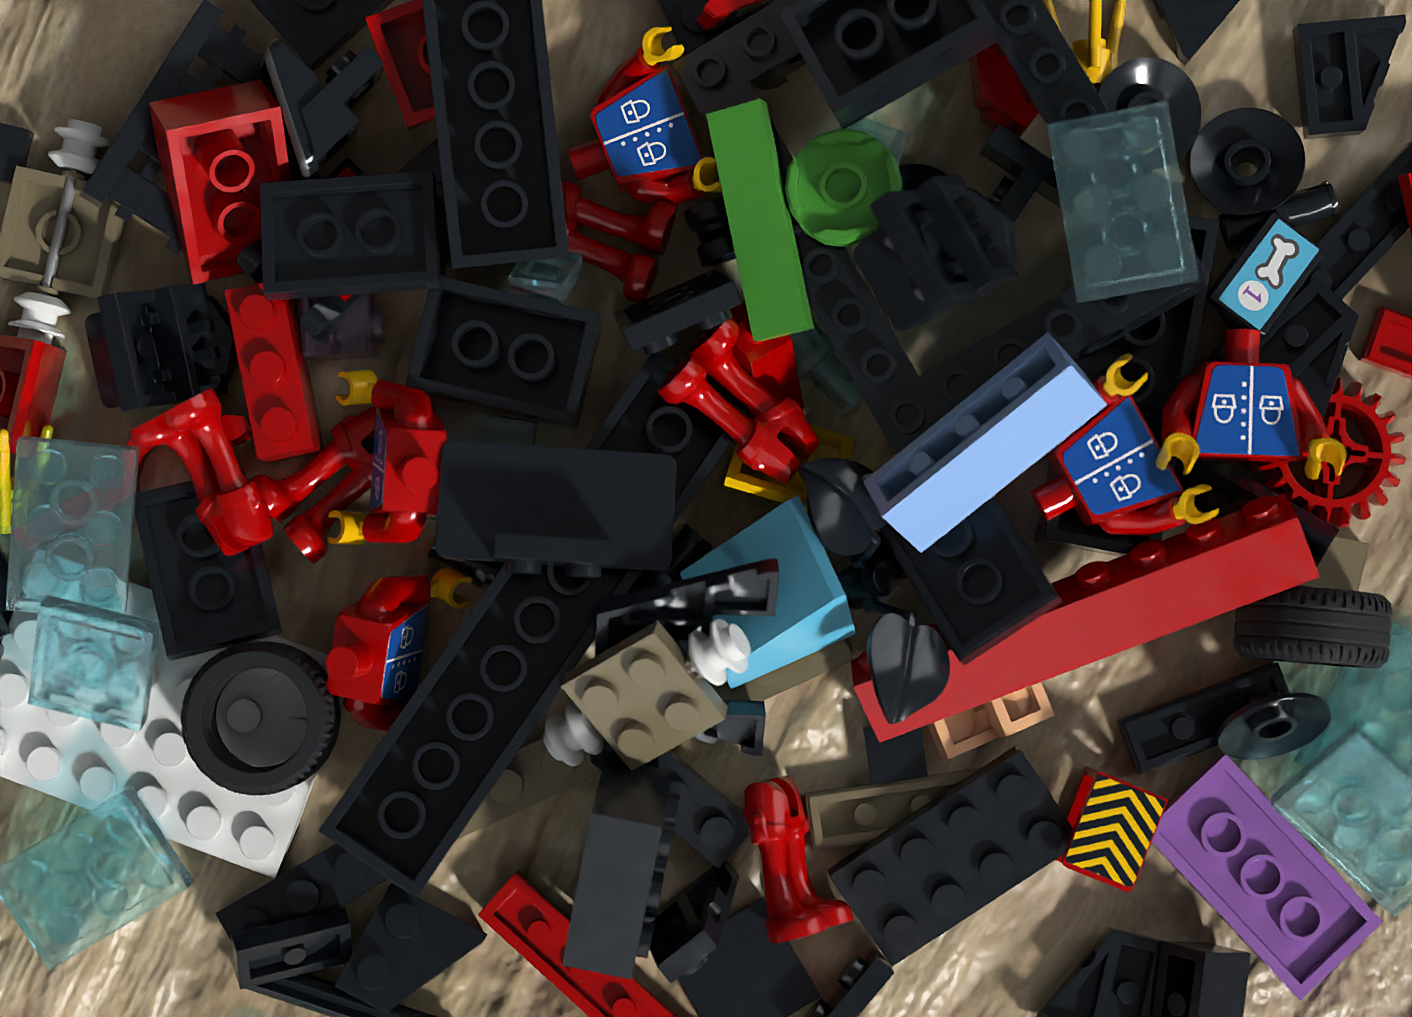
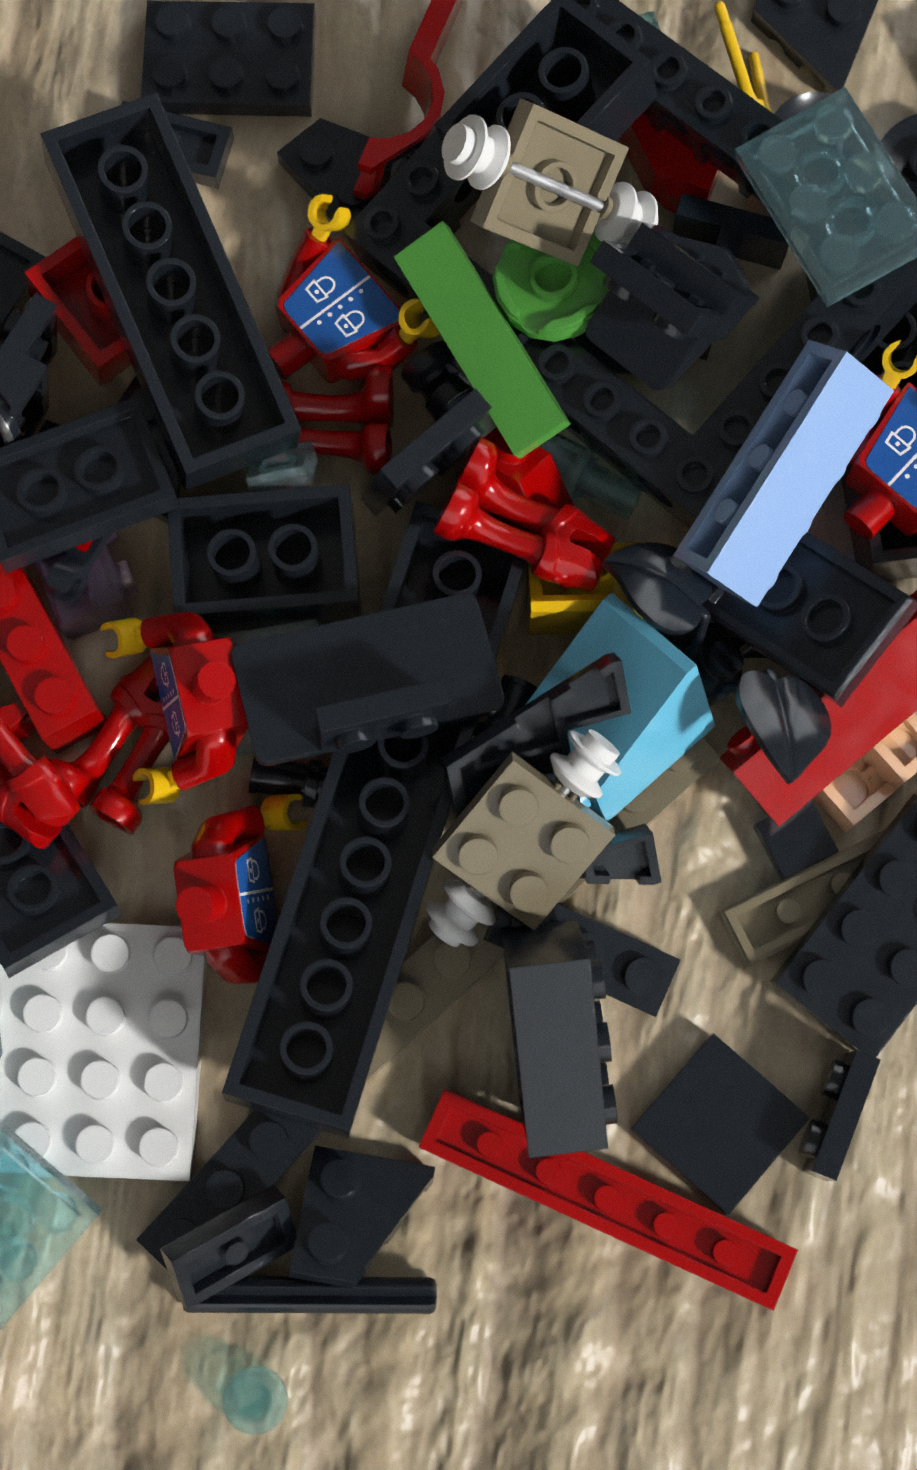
camera: 15 degrees left, 10 degrees down
(201, 729) = (60, 983): black tyre -> none
(693, 923) = (652, 1076): black wing -> none
(779, 830) = (705, 952): red piece -> none
(859, 113) = (546, 181): none -> dark tan plate

